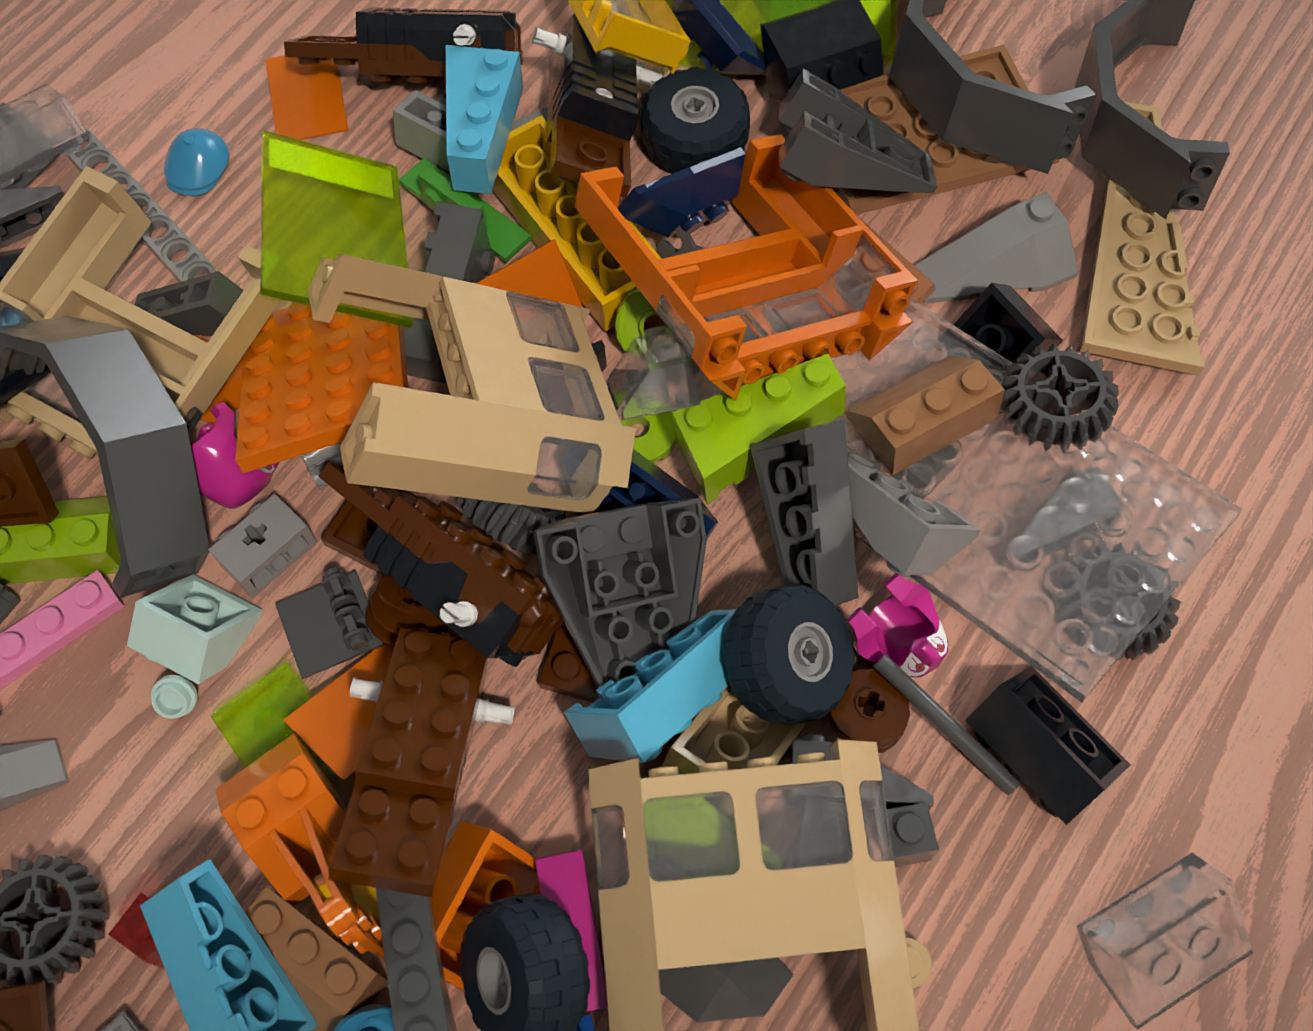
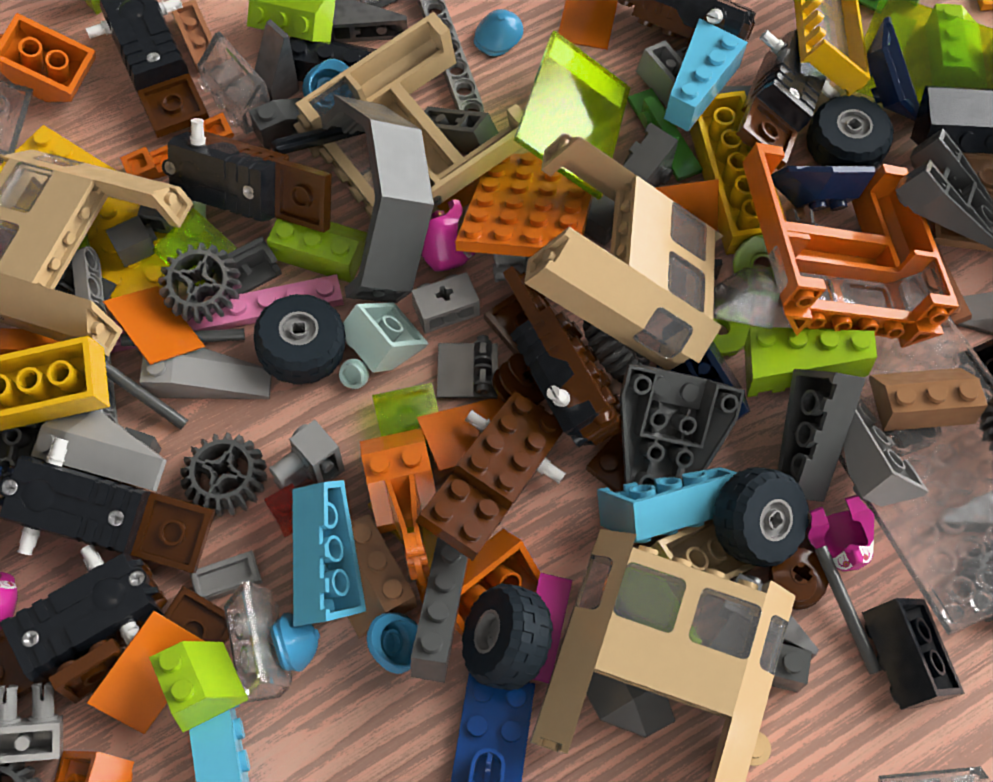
camera: 20 degrees right, 0 degrees up
(76, 682) = (299, 339): none -> black wheel
(151, 841) = (311, 457): none -> light grey brick

